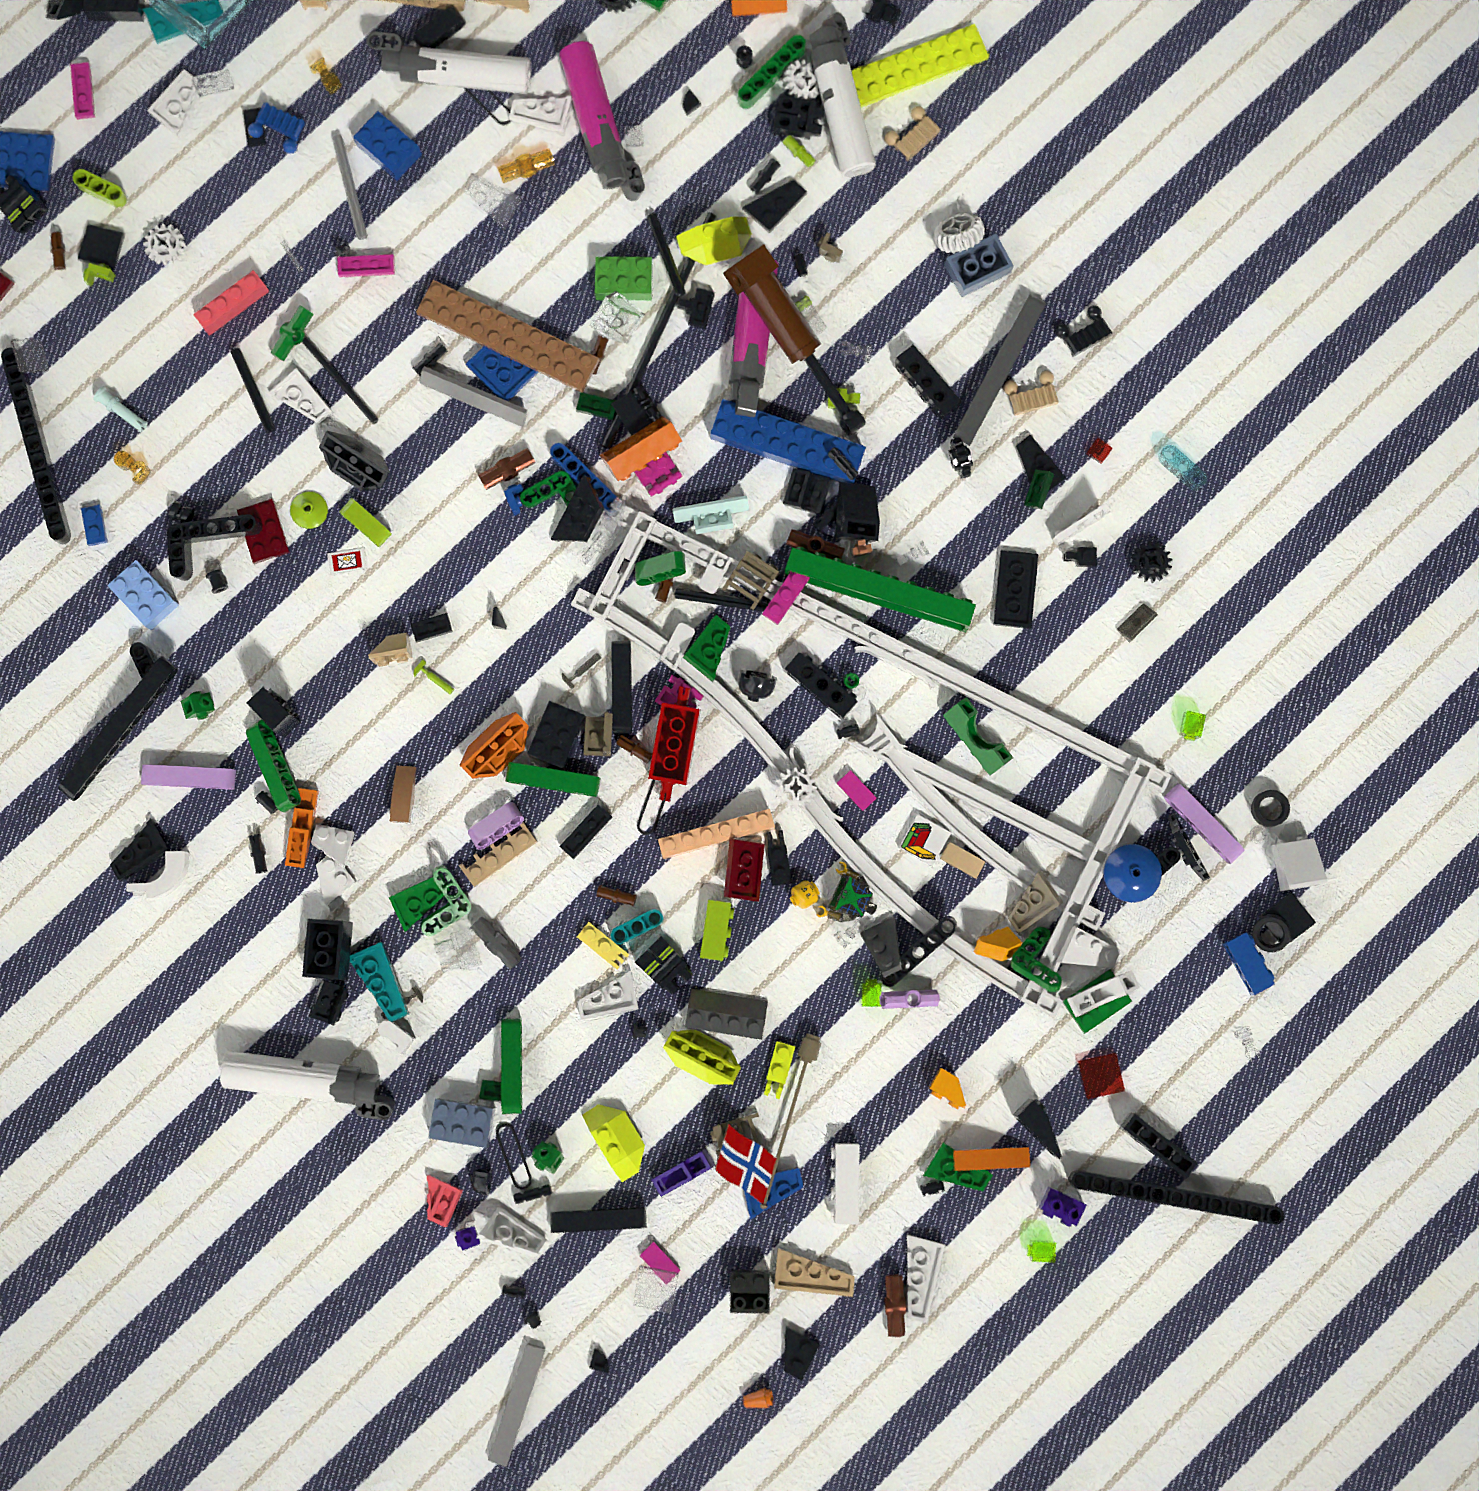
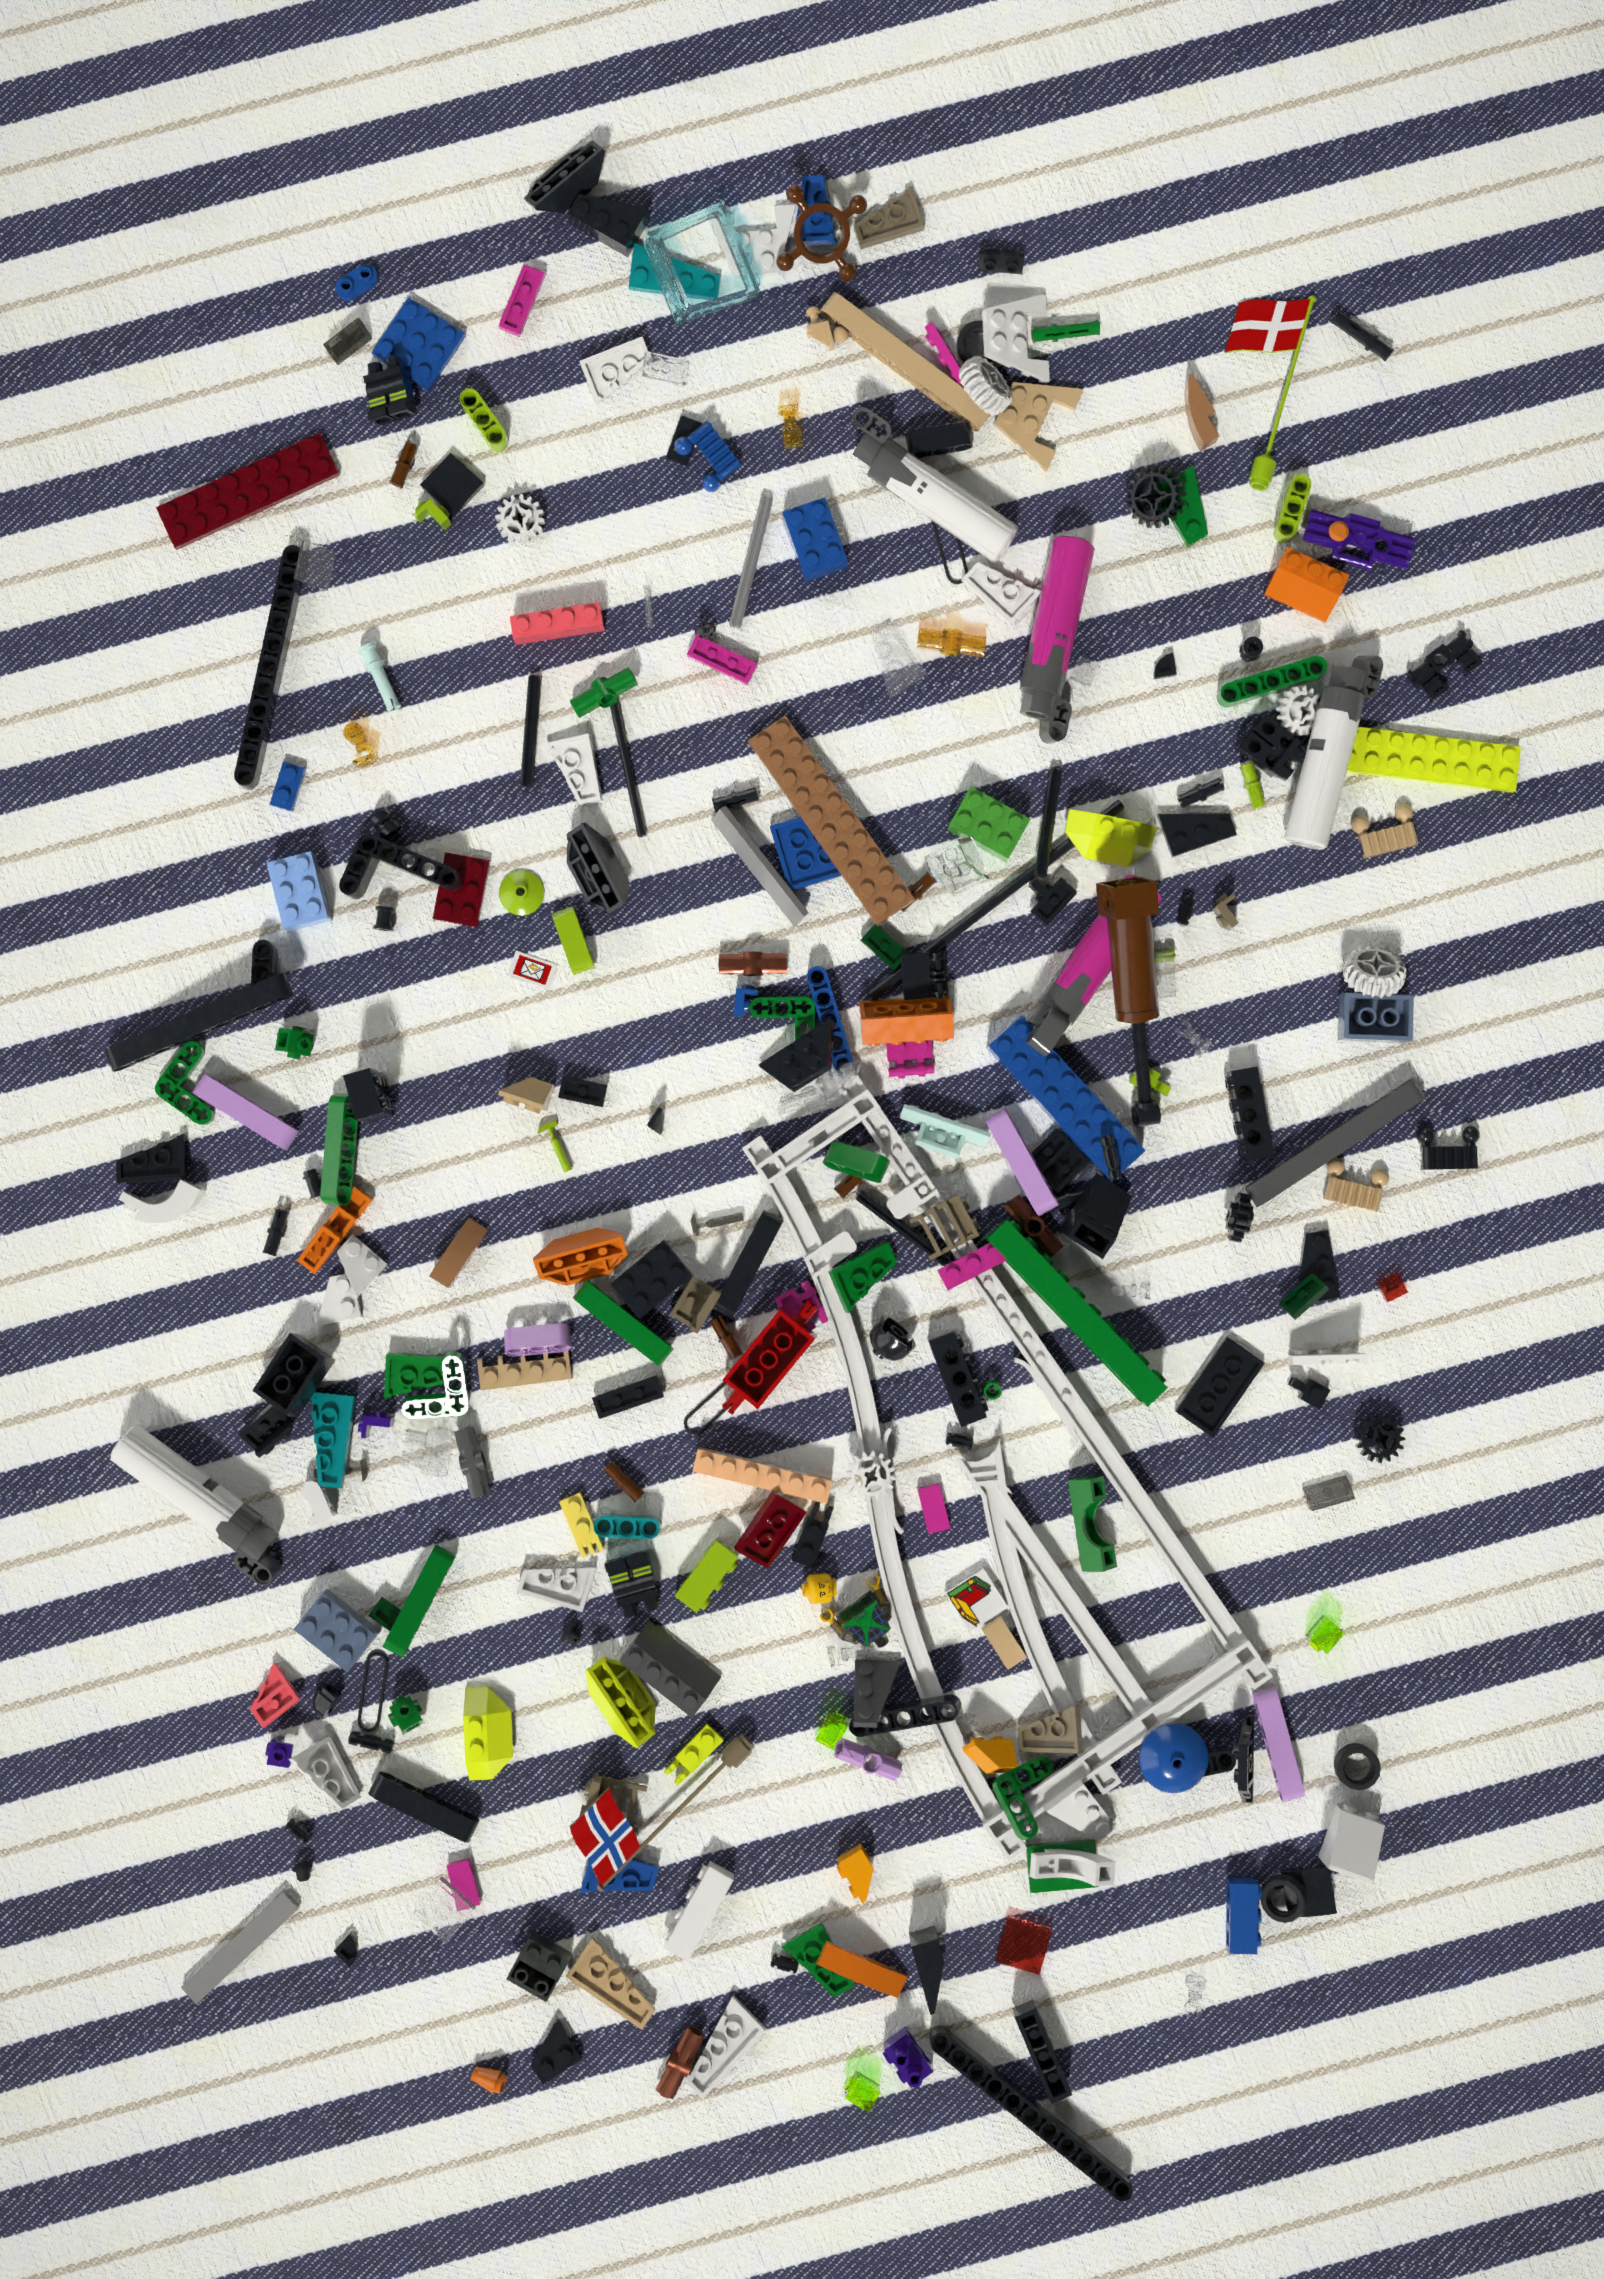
camera: 25 degrees right, 5 degrees up
(125, 783) = (177, 1082): none -> green beam
(409, 948) = (380, 1419): none -> dark purple bracket
(683, 1172) = (537, 1806): dark purple slope -> none
(781, 504) = (1022, 1162): none -> lavender beam
(861, 548) = (1080, 1256): nougat plate -> none
(1180, 458) = (1478, 1363): clear light blue beam -> none

